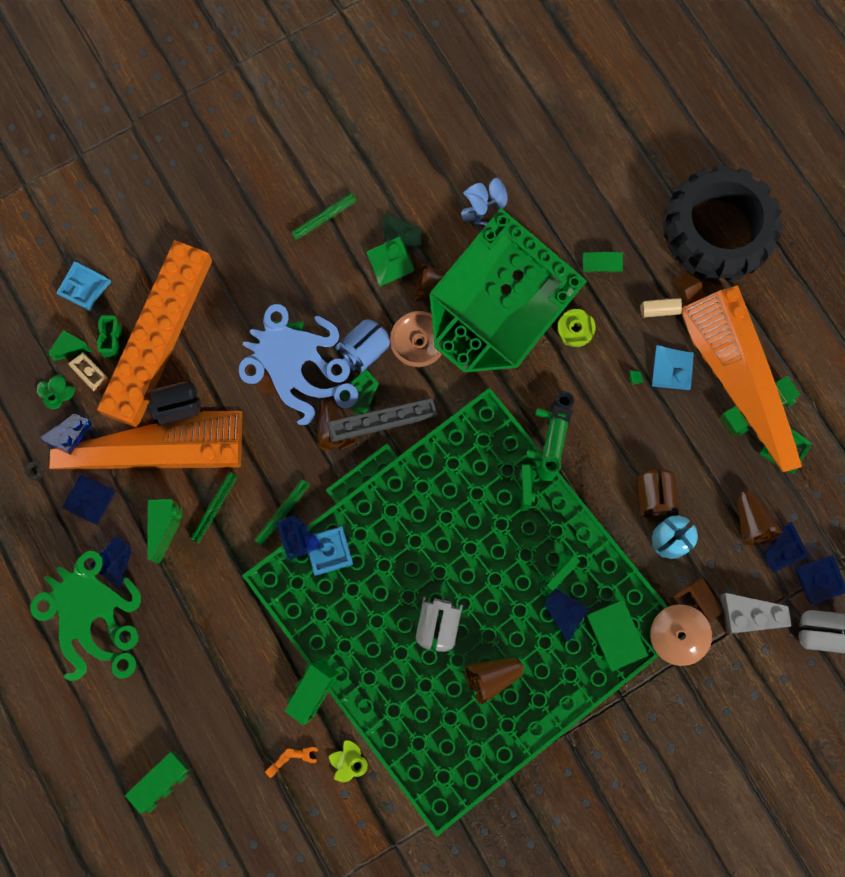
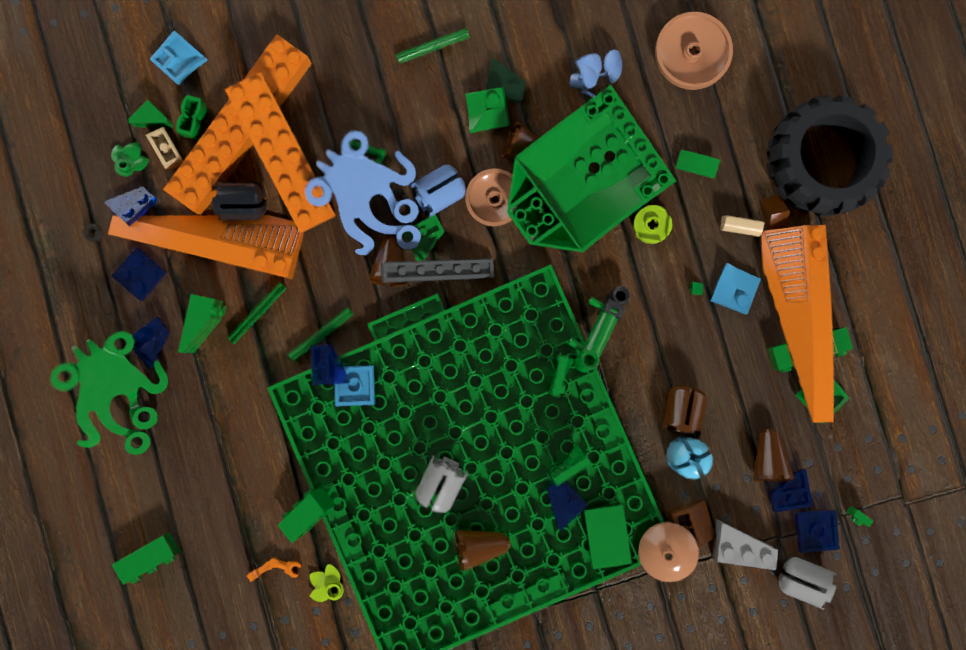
camera: 15 degrees right, 10 degrees up
(203, 346) = (278, 150): none -> orange brick
(569, 161) = (693, 50): none -> nougat dish

